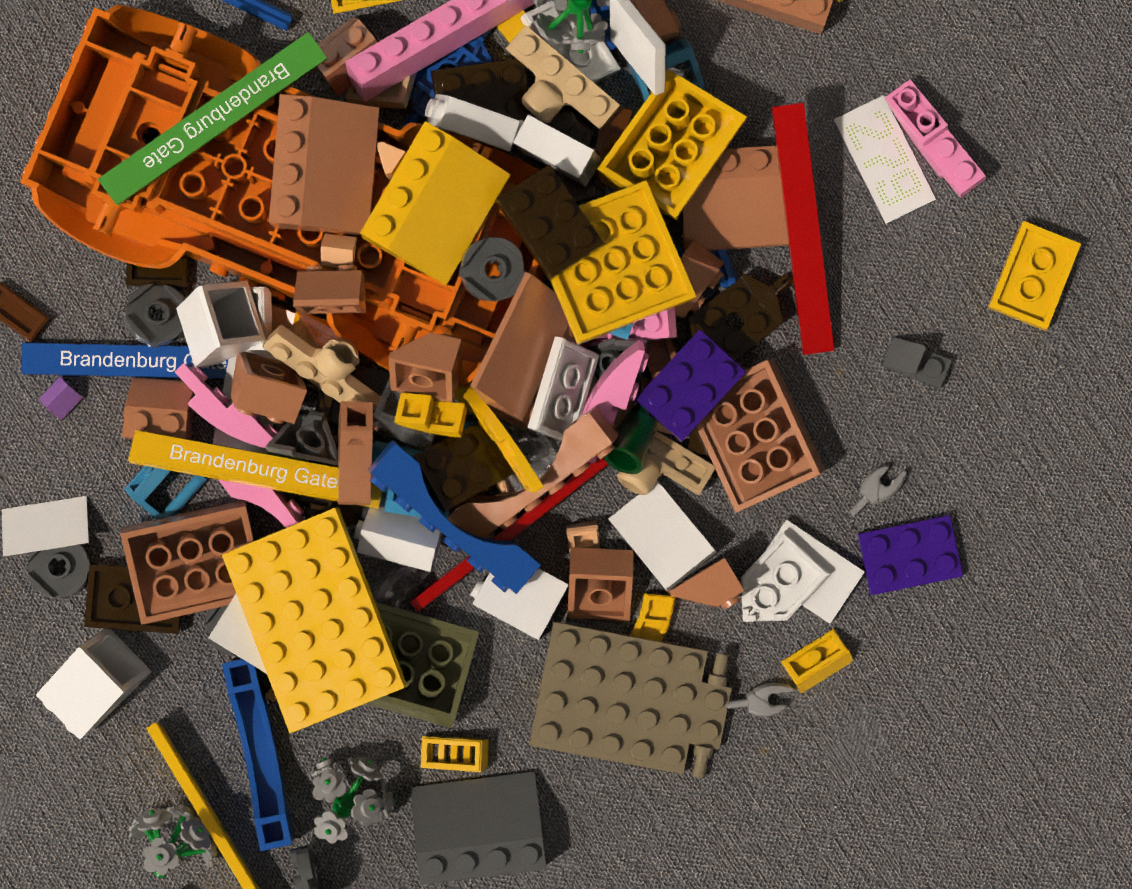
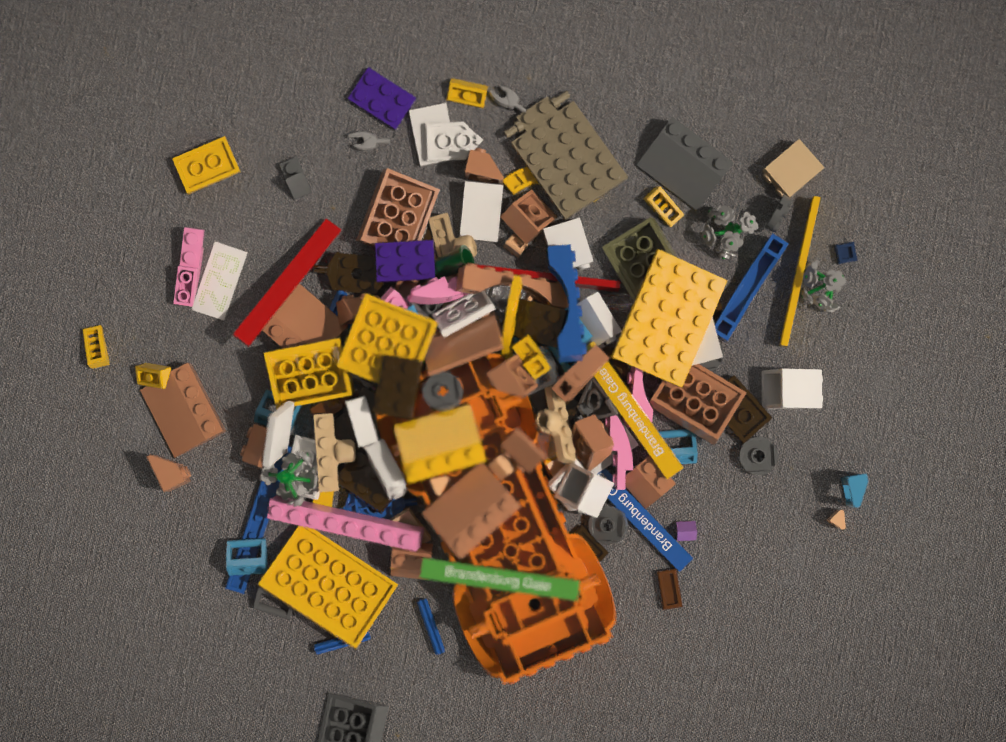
camera: 135 degrees left, 0 degrees up
(44, 526) = (747, 479): white sticker -> none

